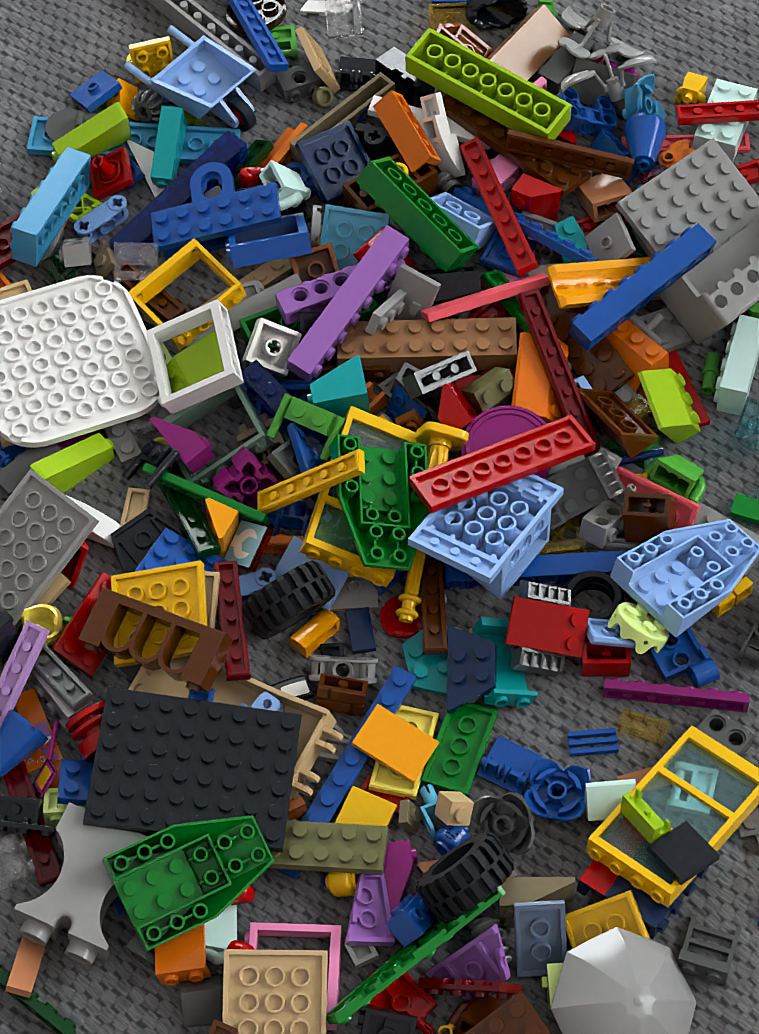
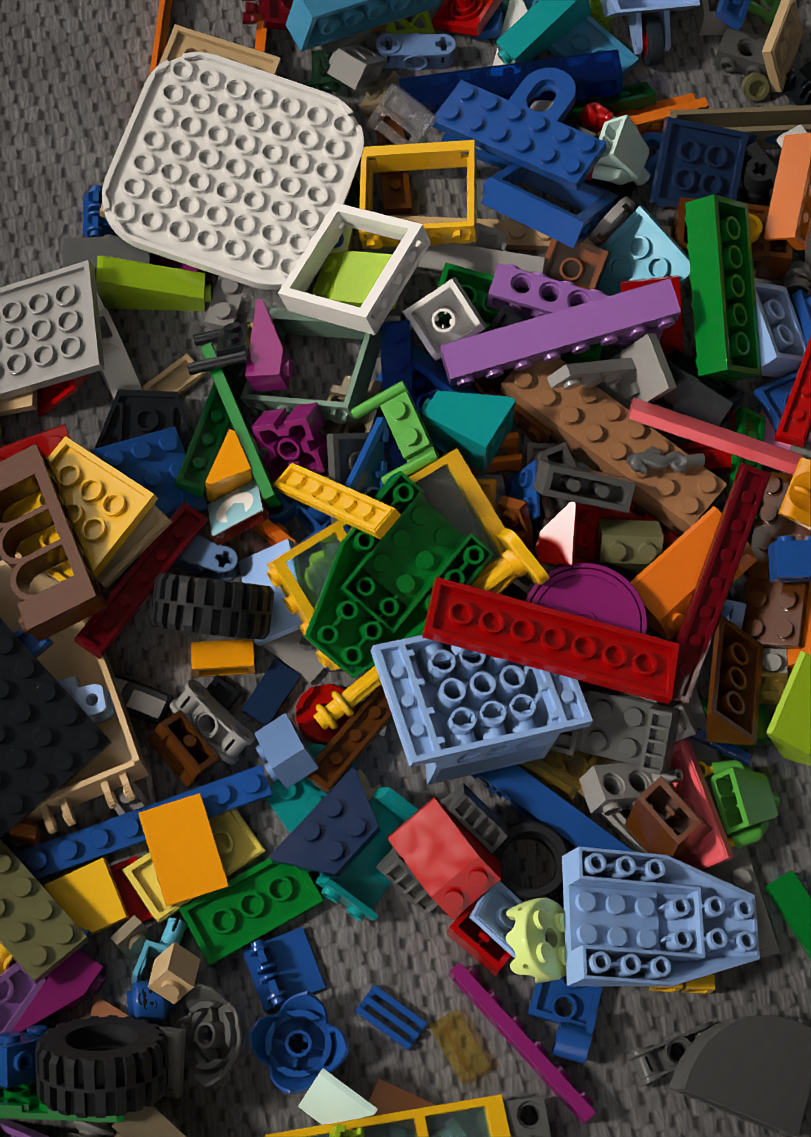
camera: 30 degrees right, 10 degrees up
(402, 648) = (284, 751): none -> medium blue brick
(462, 333) = (654, 459): none -> dark grey animal

